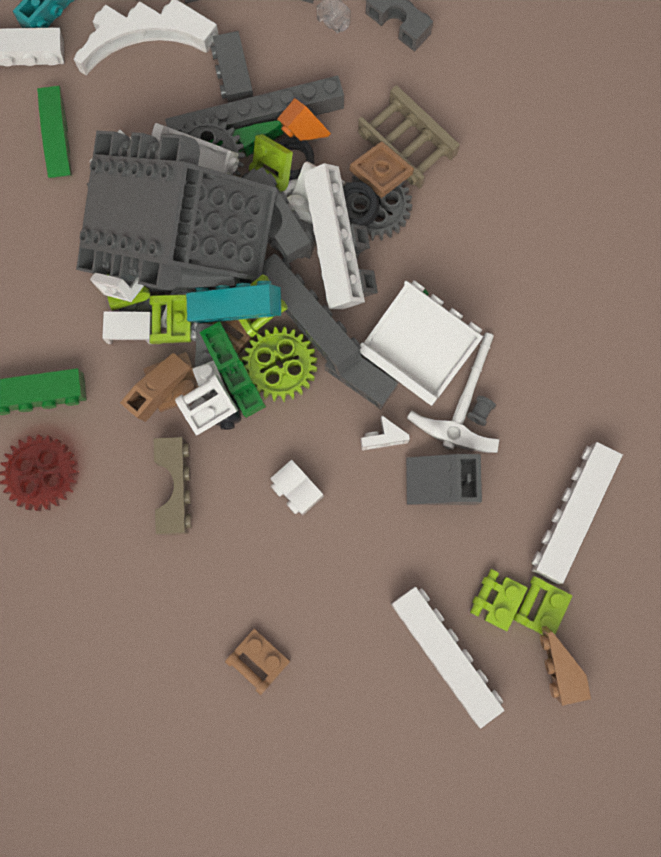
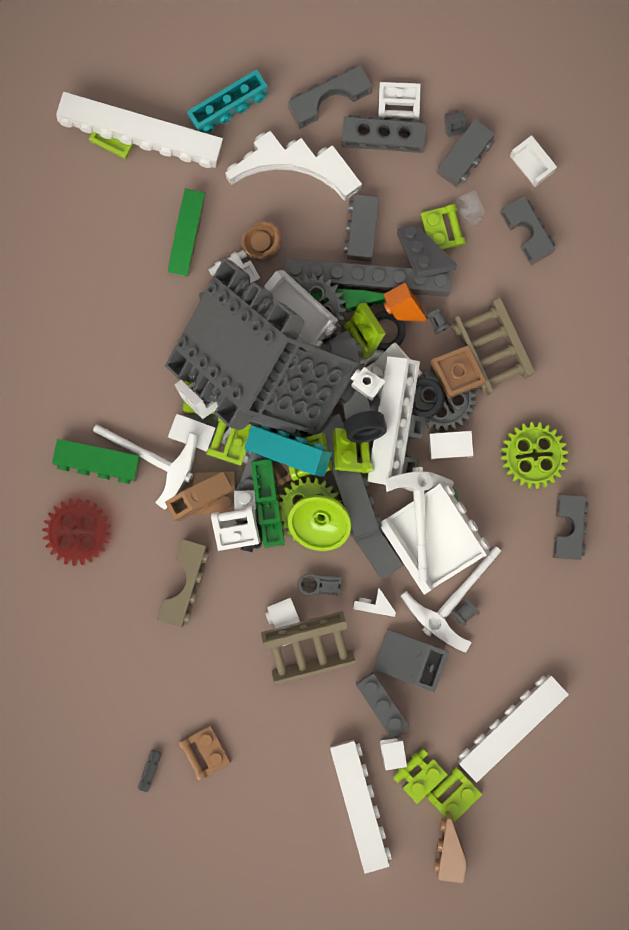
camera: 20 degrees right, 5 degrees up
(126, 370) = (177, 471): none -> white piece
(135, 112) = (262, 241): none -> medium nougat piece
(204, 703) = (149, 771): none -> dark grey axle
(293, 211) = (370, 390): none -> white brick
(295, 284) = (346, 455): none -> lime plate
(298, 379) = (317, 531): none -> lime dish
(299, 240) = (365, 426): none -> black tyre
(303, 68) = (423, 252): none -> dark grey wing
(308, 49) = (436, 230): none -> lime plate
(309, 495) = (304, 630): none -> dark tan fence
(322, 435) = (323, 585): none -> dark grey piece
(343, 131) = (438, 321): none -> dark grey bush
(381, 291) = (418, 482): none -> white piece
(401, 246) = (450, 445): none -> white panel
(431, 538) = (382, 705): none -> dark grey brick
(462, 585) = (393, 753): none -> white panel
(499, 246) = (535, 474): none -> lime gear
(551, 267) = (573, 509): none -> dark grey arch

